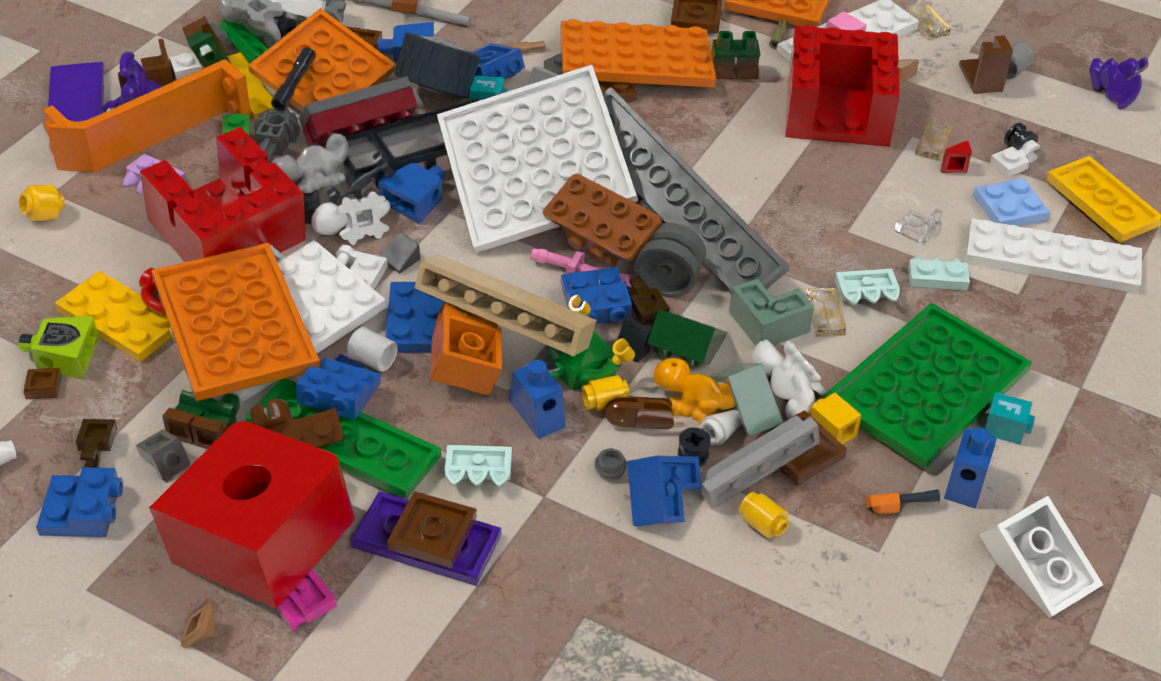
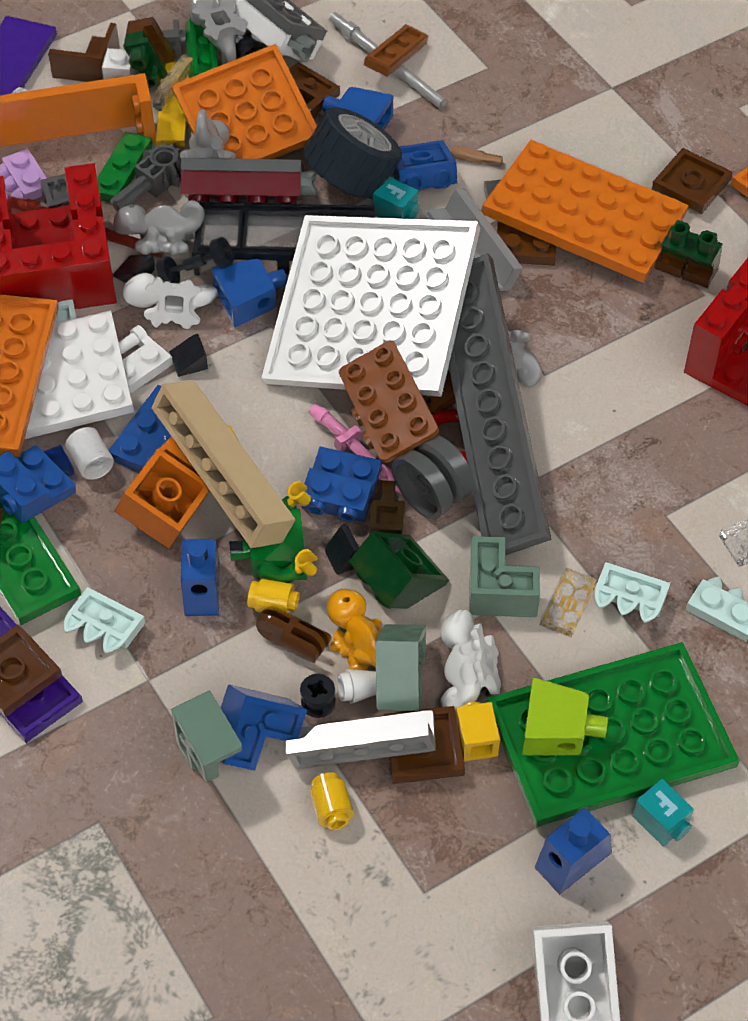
camera: 30 degrees right, 10 degrees up
(136, 82) = (59, 70): dark purple animal -> none
(199, 172) = (55, 191): none -> dark grey bracket
(244, 58) = (177, 74): none -> clear tile
(287, 89) = (216, 107): black piece -> none
(315, 86) = (209, 139): none -> light grey animal
(610, 463) = (225, 673): dark grey plate -> none
(637, 502) = (204, 734): none -> sand green panel
(891, 502) = (469, 847): orange piece -> none
(892, 383) = (559, 720): none -> lime torso

